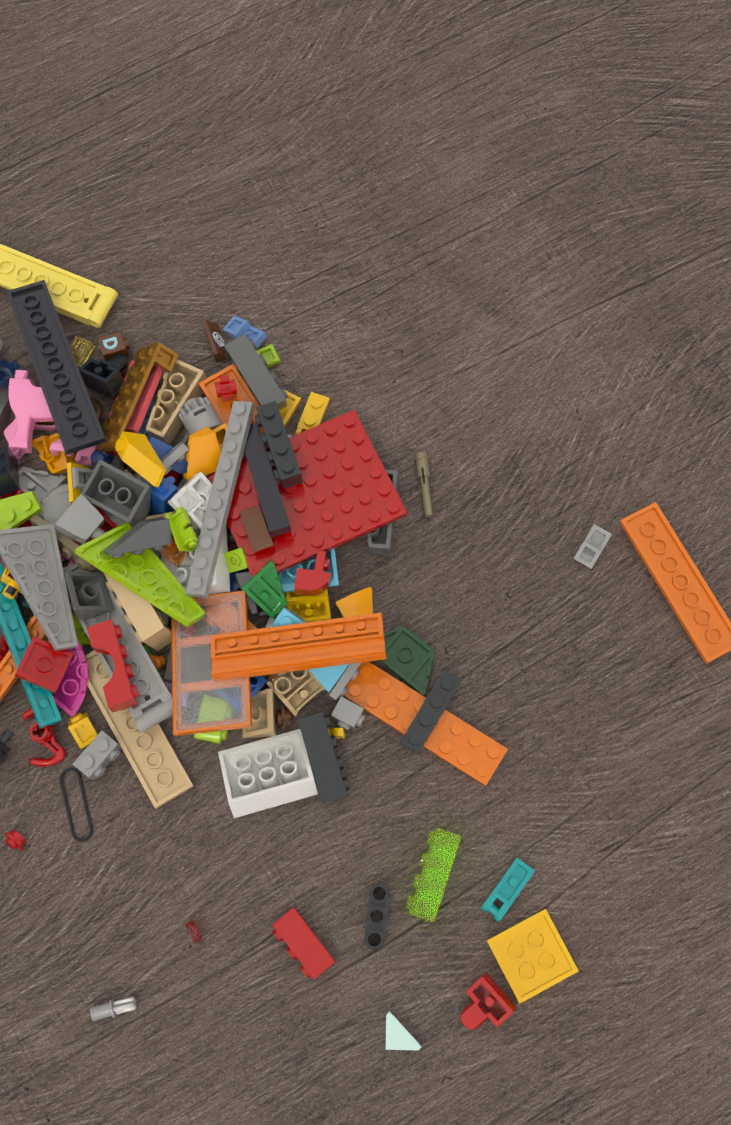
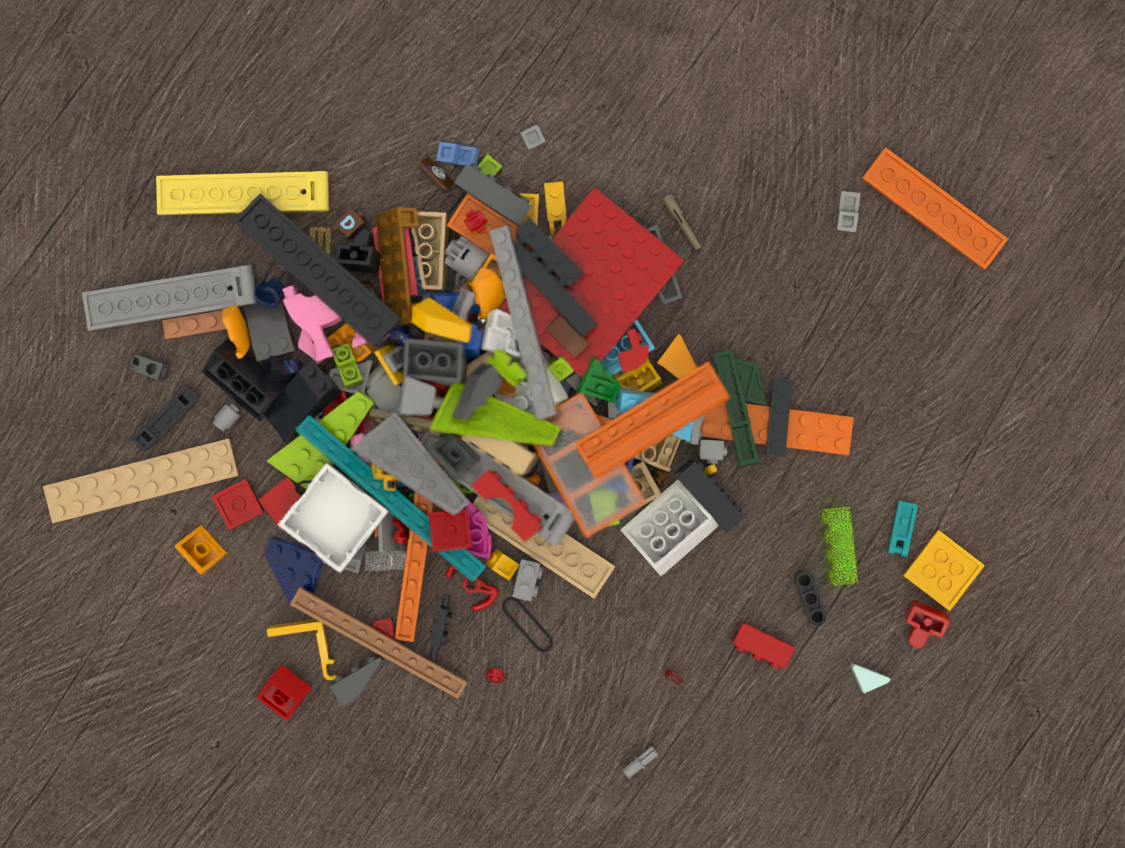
camera: 30 degrees left, 15 degrees up
(38, 469) = (347, 365): none -> lime slope
(321, 347) = (533, 137): none -> light grey plate
(391, 684) = (736, 409): none -> dark green slope

